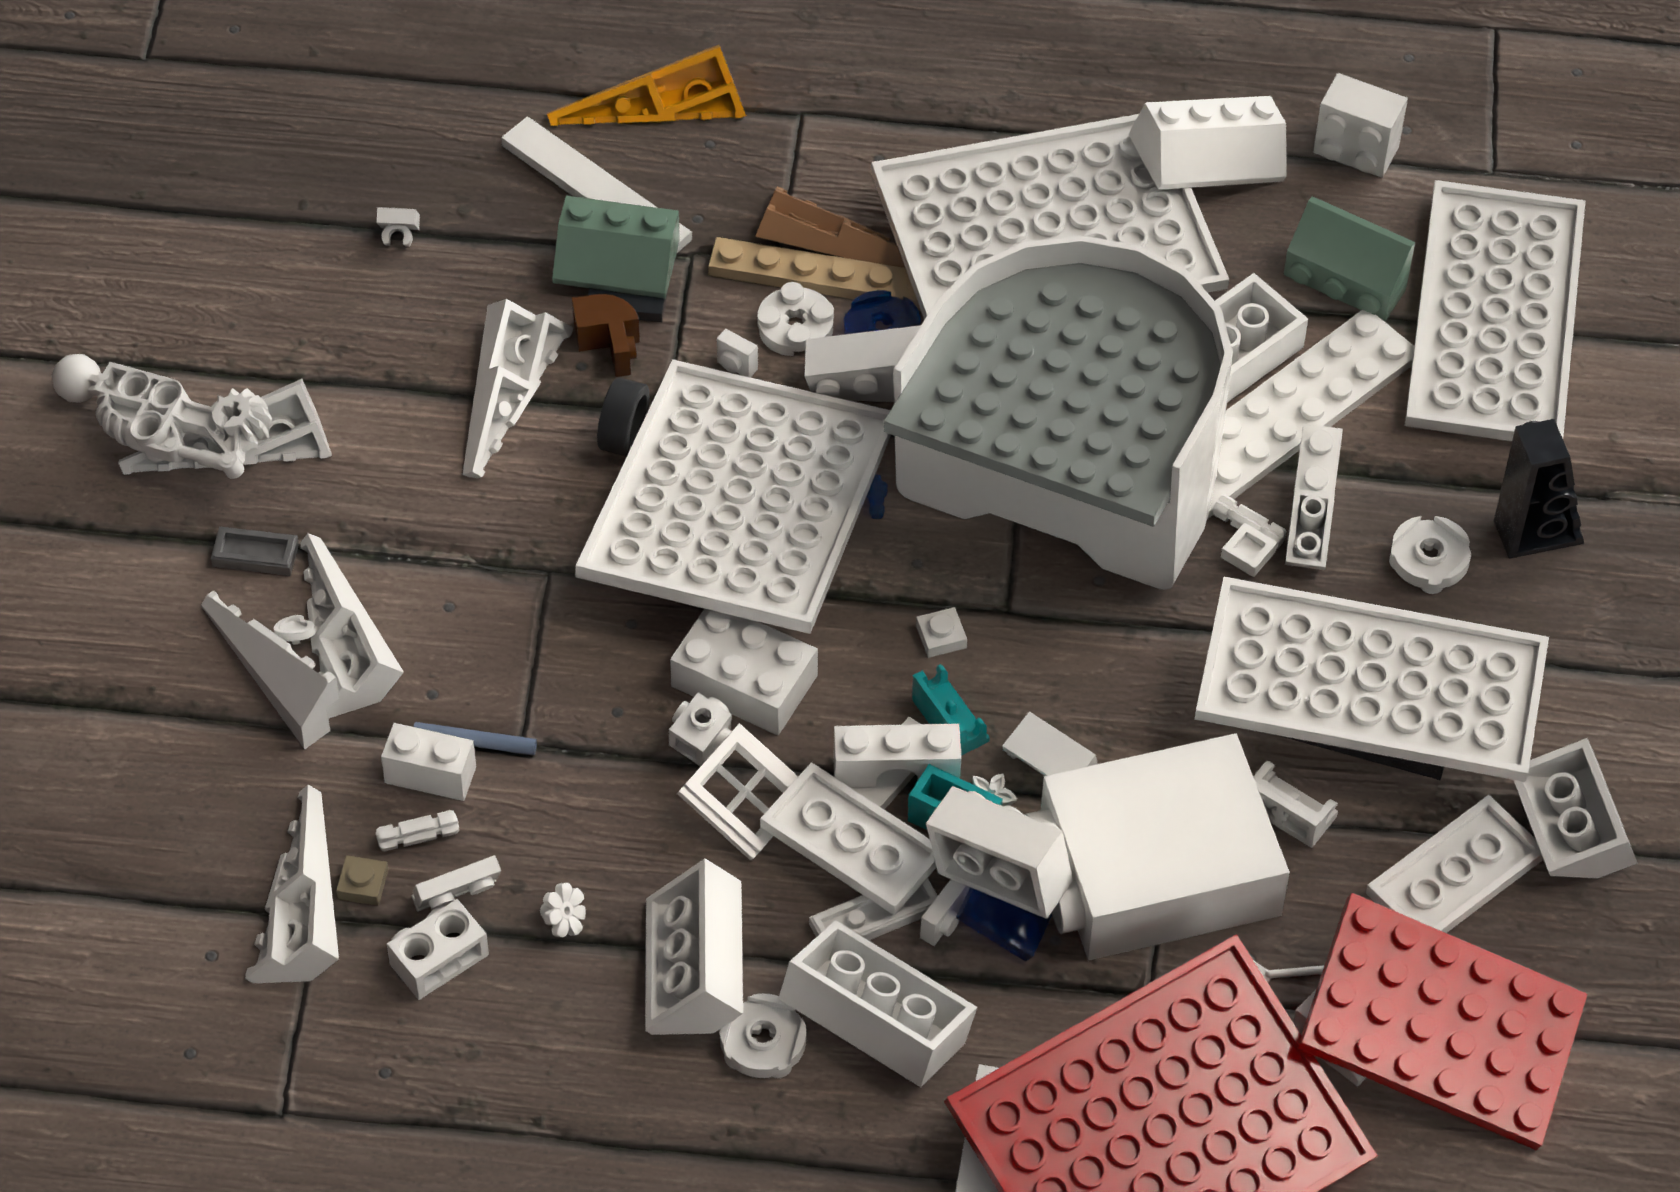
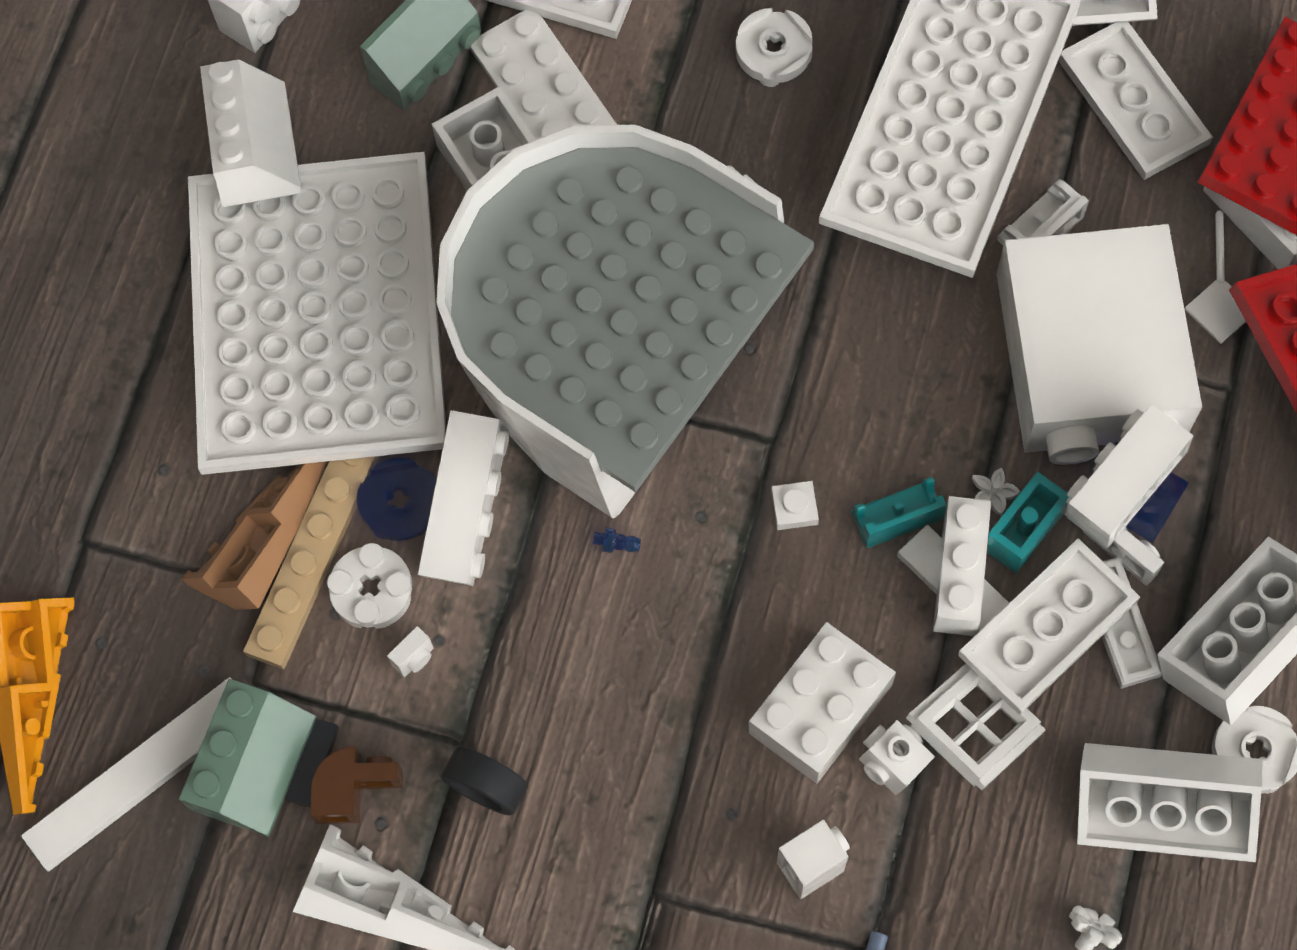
camera: 75 degrees left, 15 degrees up
(589, 668) = (813, 858): none -> white brick
(737, 496) = (615, 675): white plate -> none
(1046, 747) = (966, 426): white hinge -> none
(1313, 497) = (714, 133): white slope -> none

